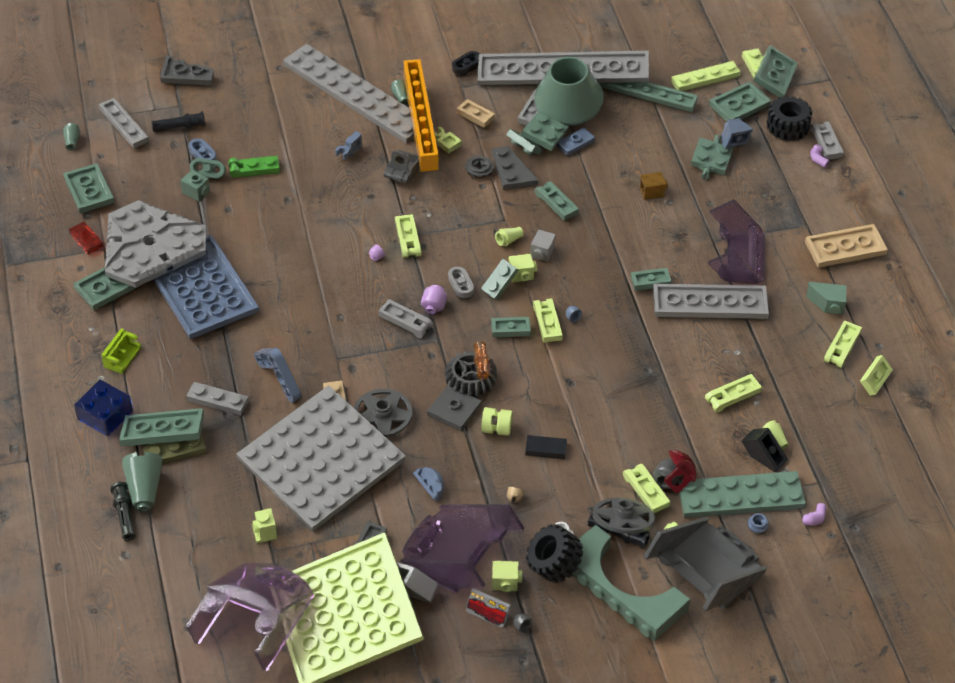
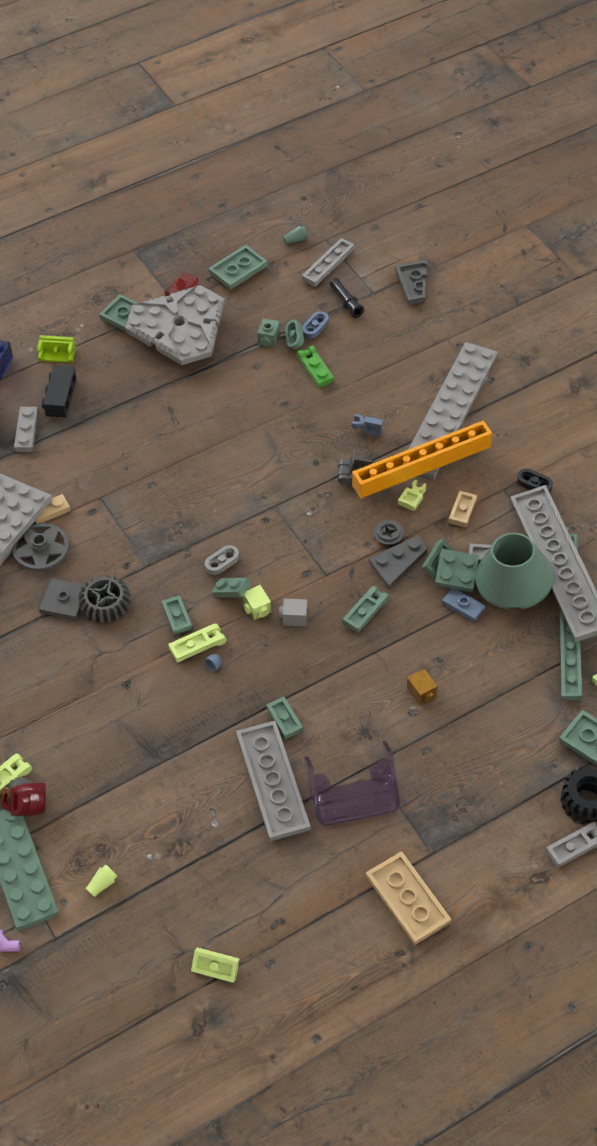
camera: 75 degrees right, 5 degrees up
(184, 358) = (59, 391): none -> black brick
(206, 292) = (144, 382): sand blue plate -> none
(274, 359) = (56, 446): sand blue beam -> none
(376, 253) = (237, 486): lavender hinge -> none
(405, 318) = (160, 530): light grey plate -> none
(407, 235) = (267, 502): yellowish green plate -> none
(434, 299) = (189, 544): lavender head -> none
(481, 360) = (109, 596): clear orange pin -> none
(503, 422) = (48, 633): yellowish green wheel -> none
(508, 235) = (298, 580): yellowish green cone -> none
(546, 447) = (35, 684): black tile -> none
(711, 156) = (496, 734): sand green plate -> none
(733, 392) = (150, 829): yellowish green plate -> none
(735, 133) = (534, 744): sand blue slope -> none
(765, 448) = (77, 873): black slope -> none
(816, 156) = (544, 840): lavender arm -> none
(828, 297) = (316, 895): sand green slope -> none
(843, 343) = (253, 922): yellowish green plate -> none

